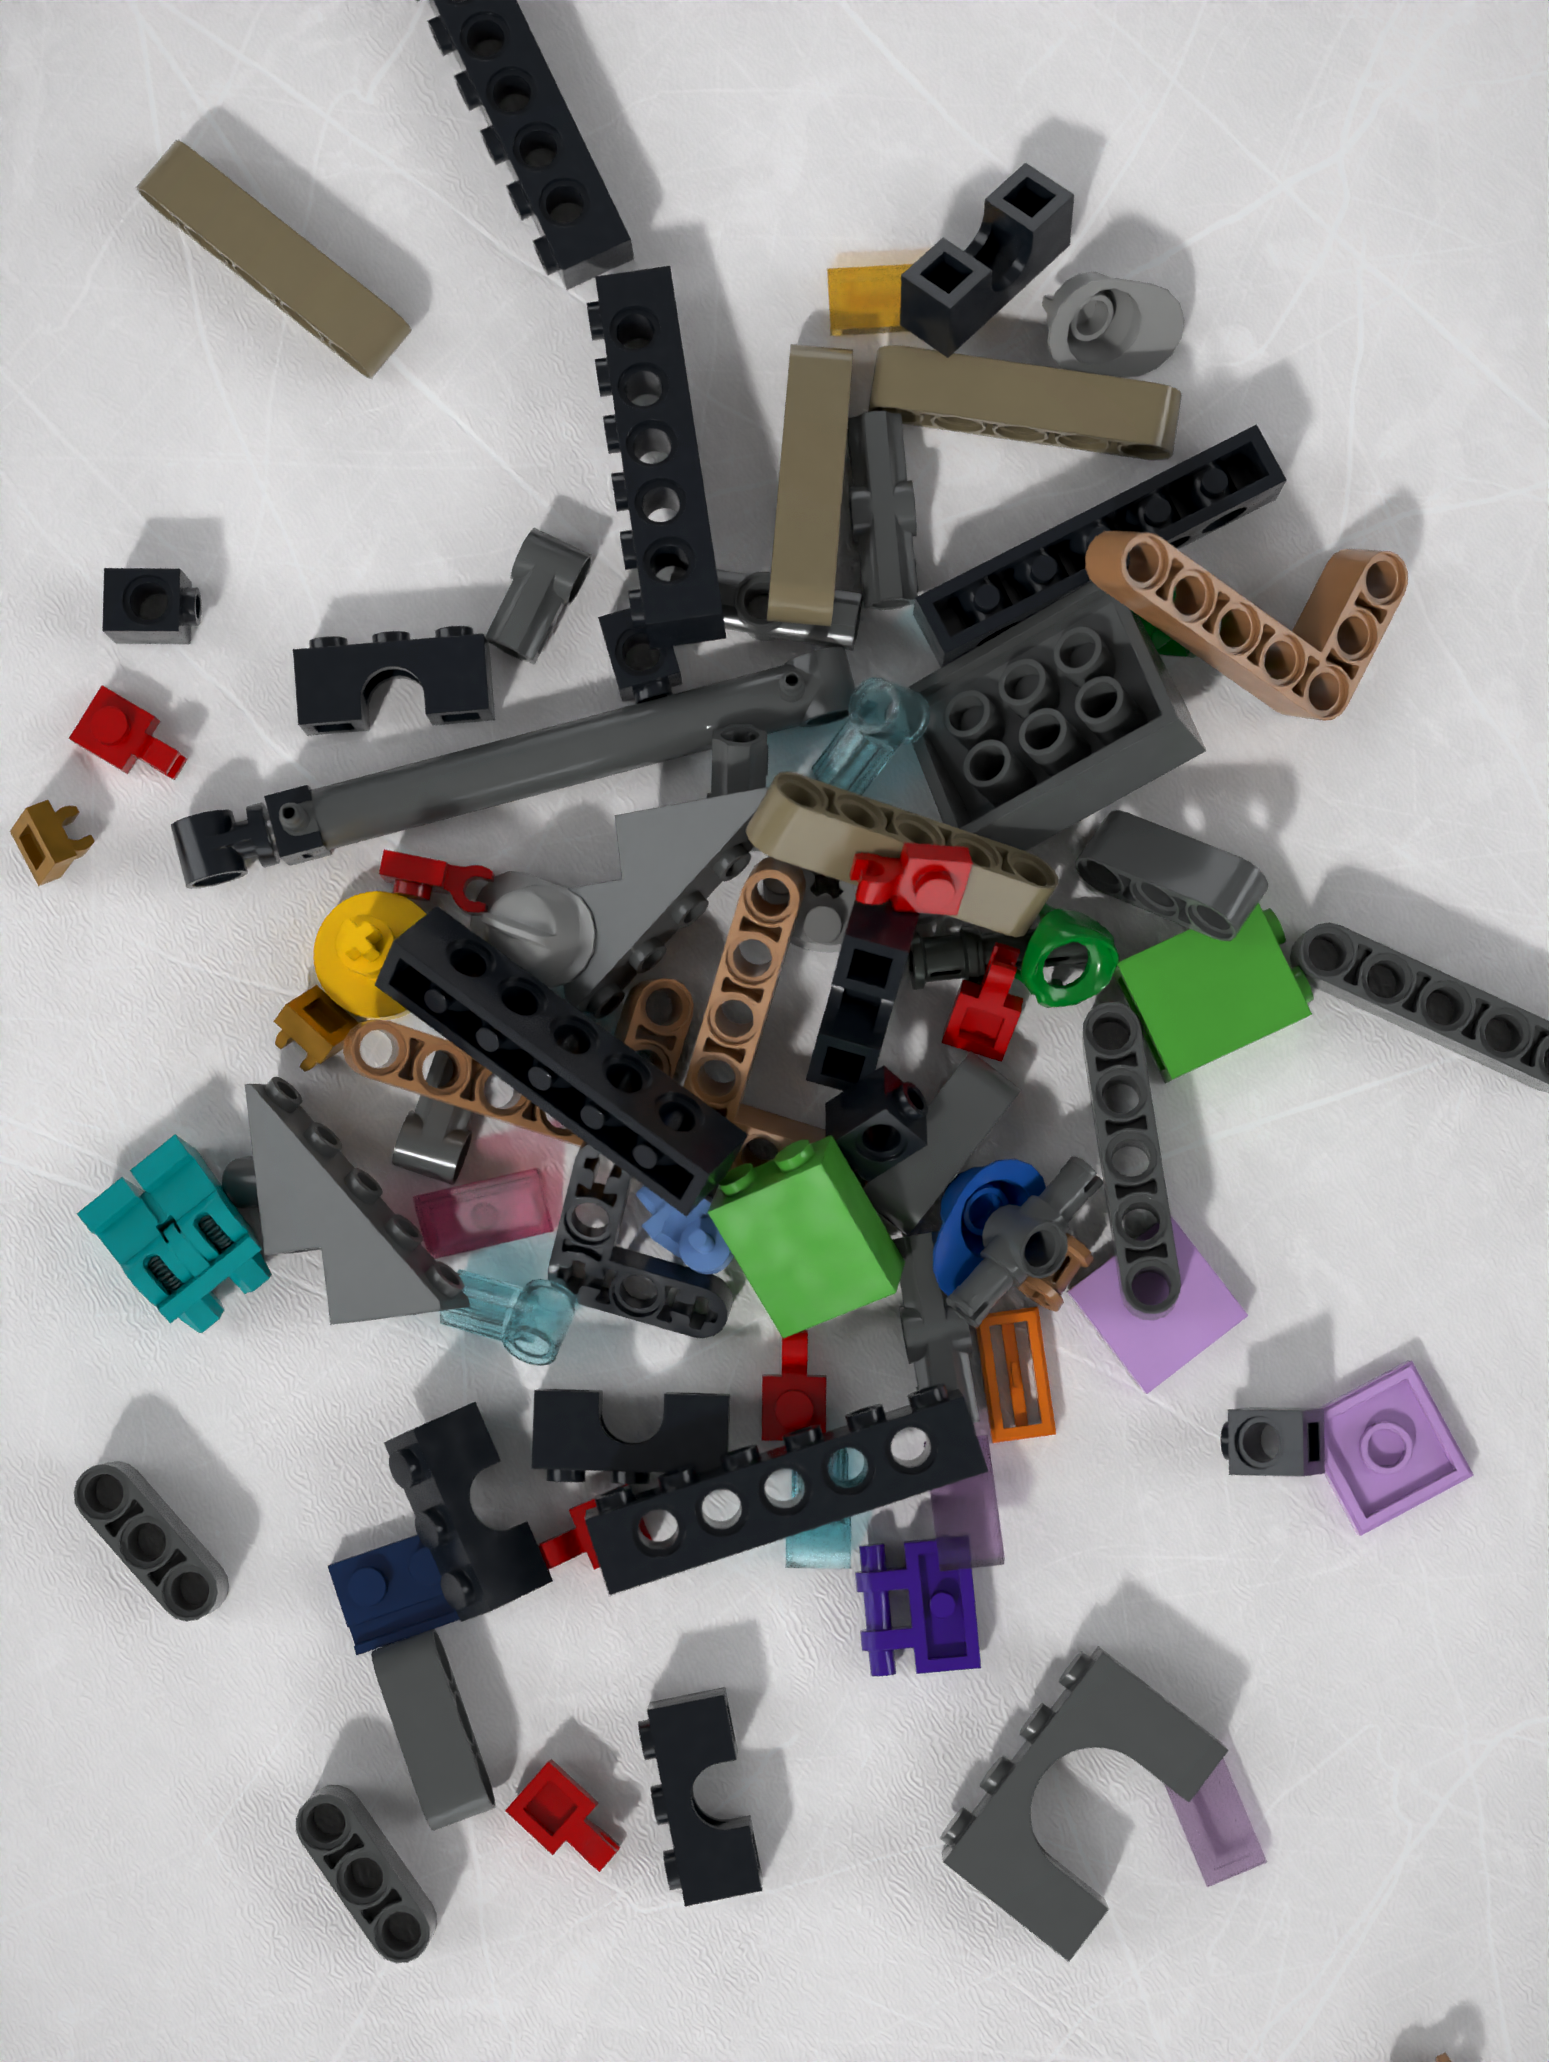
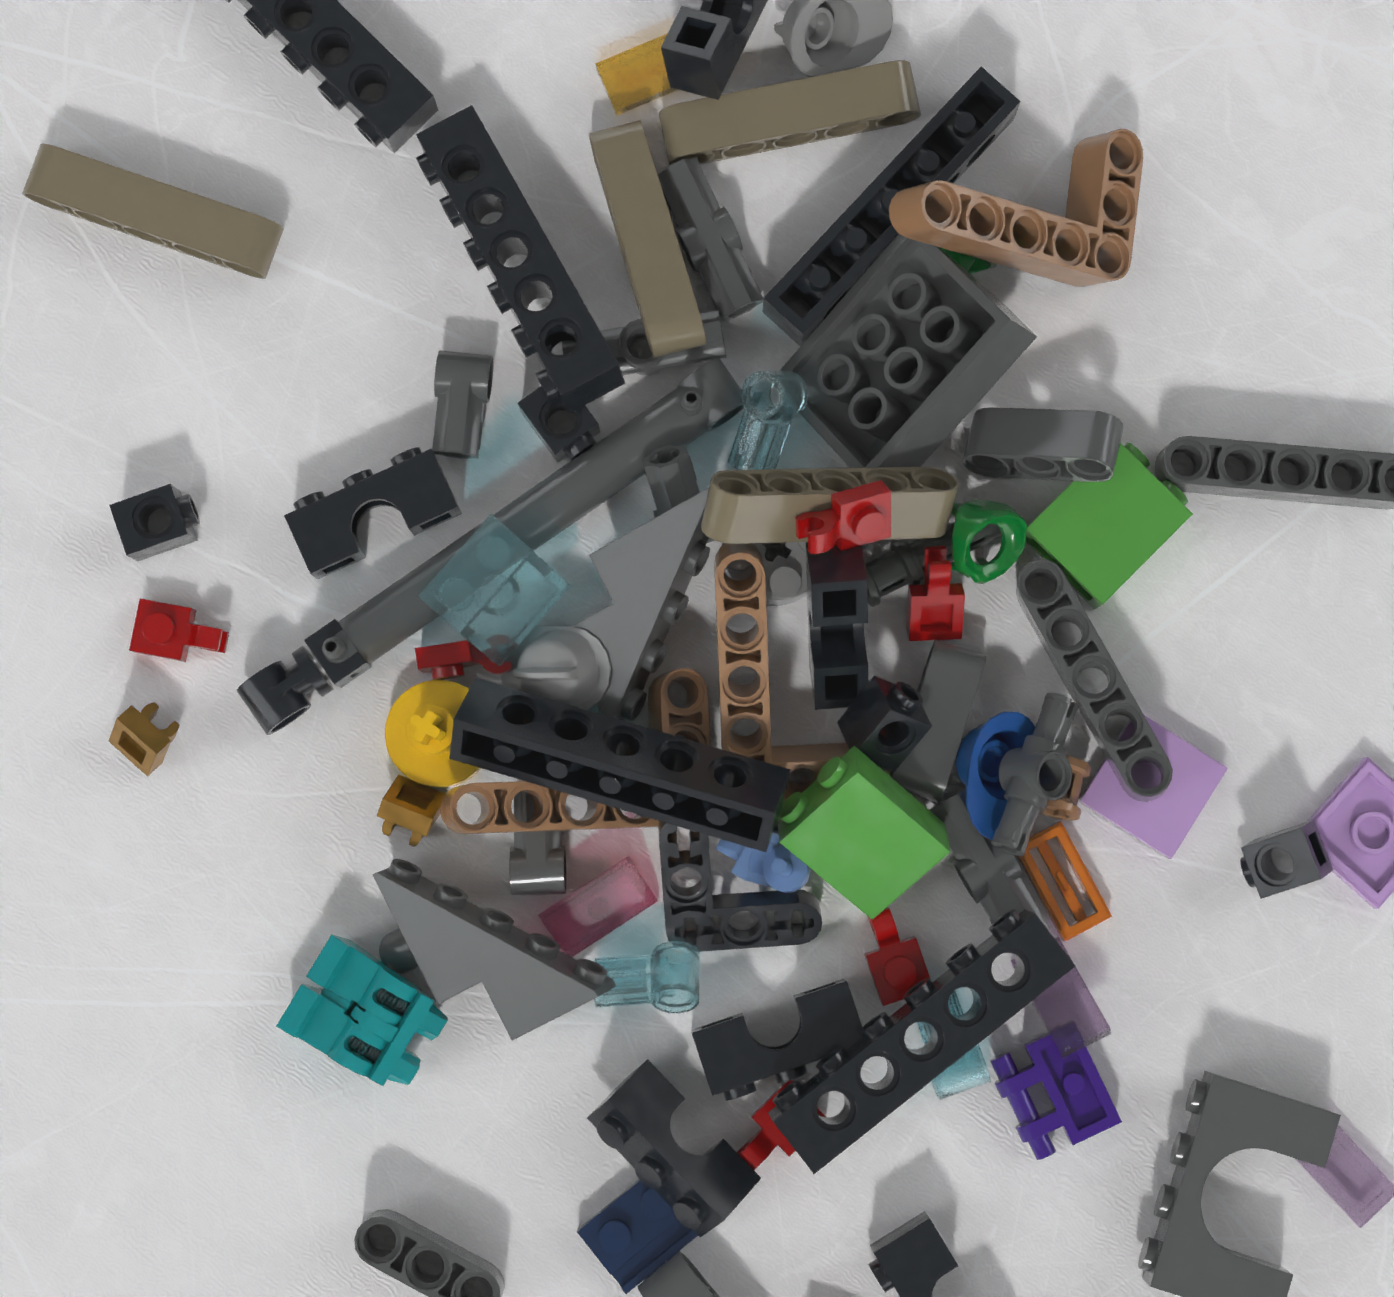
camera: 25 degrees left, 0 degrees up
(494, 816) = (494, 590): none -> clear light blue slope

